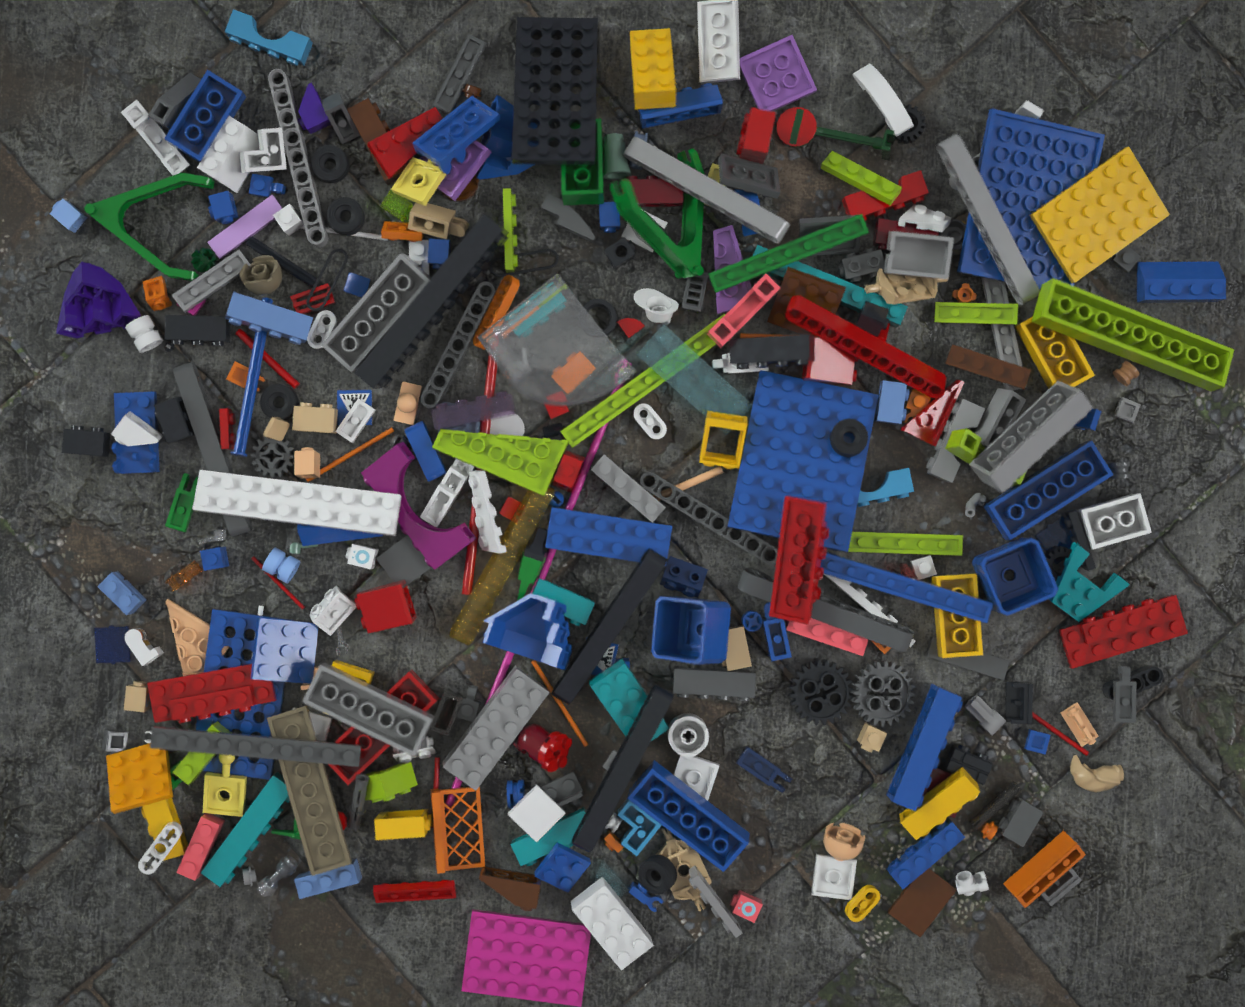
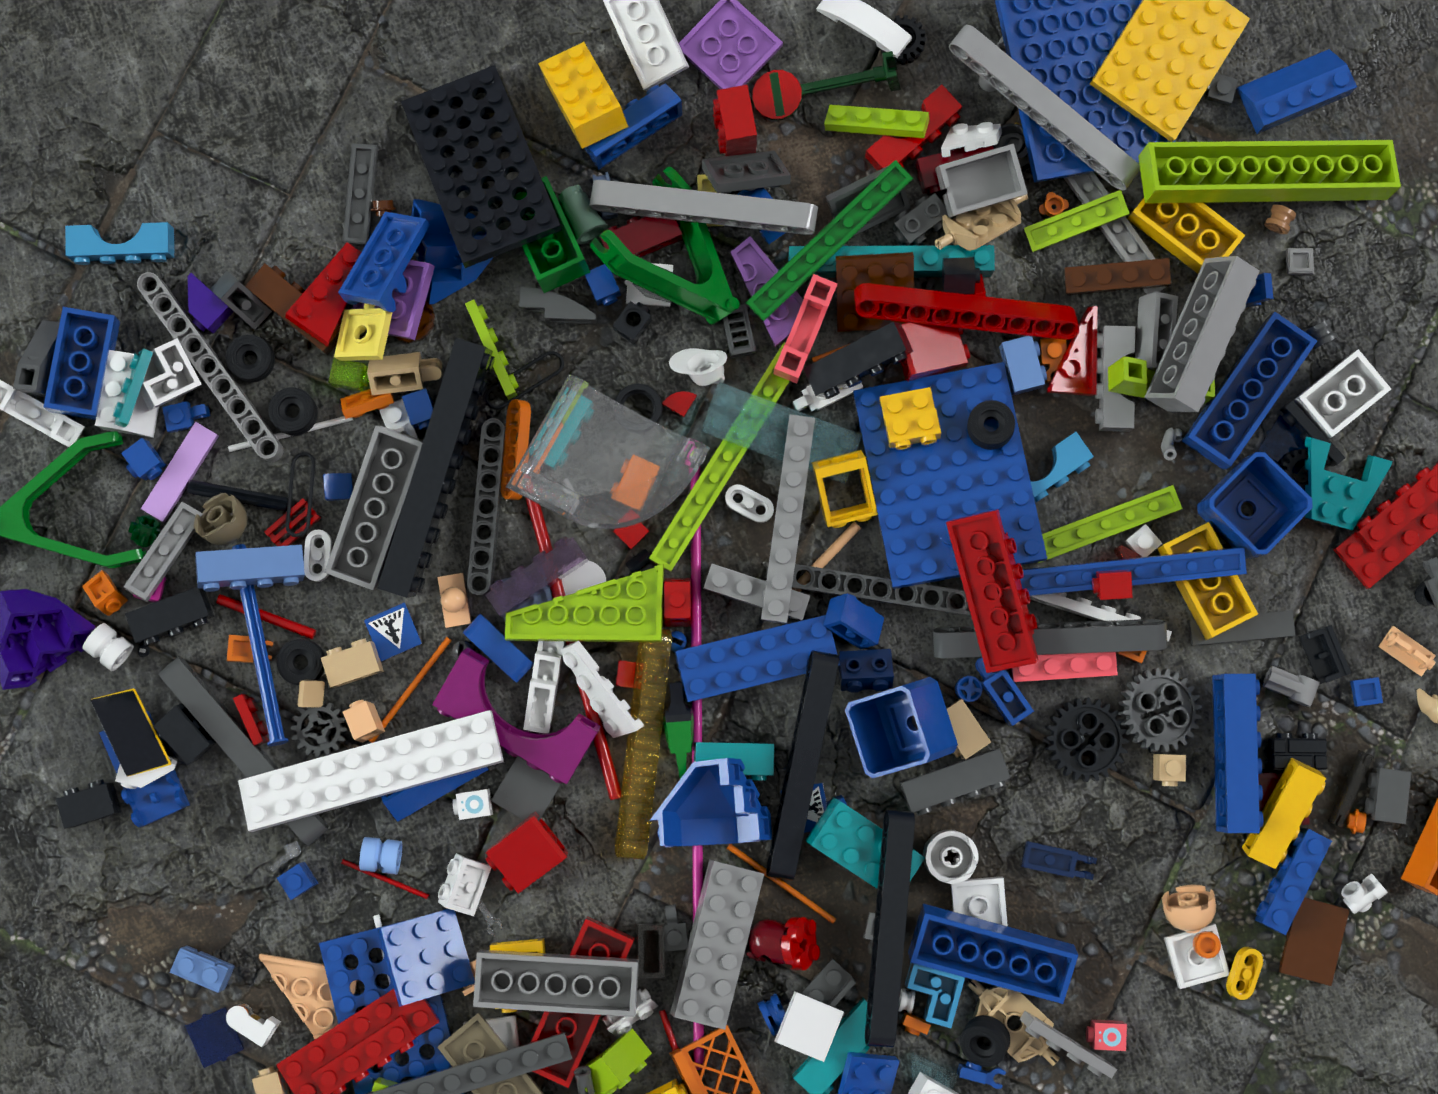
camera: 20 degrees left, 5 degrees down
(136, 403) = (130, 732): none -> black sticker
(182, 505) = (234, 833): green hinge -> none
(185, 575) = (270, 915): clear orange bar -> none
(234, 151) = (132, 387): none -> teal plate
(289, 219) = (227, 442): white brick -> none
(295, 547) = (389, 827): sand green hand -> none
(355, 420) = (400, 646): white plate -> none
(672, 445) = (788, 519): none -> light grey plate
(689, 538) = (854, 621): none -> blue brick
(792, 408) = (910, 418): none -> yellow plate
(844, 872) = (1206, 944): none -> orange tile
(886, 591) = (1112, 584): none -> red brick
(1060, 734) = (1389, 672): red axle -> none

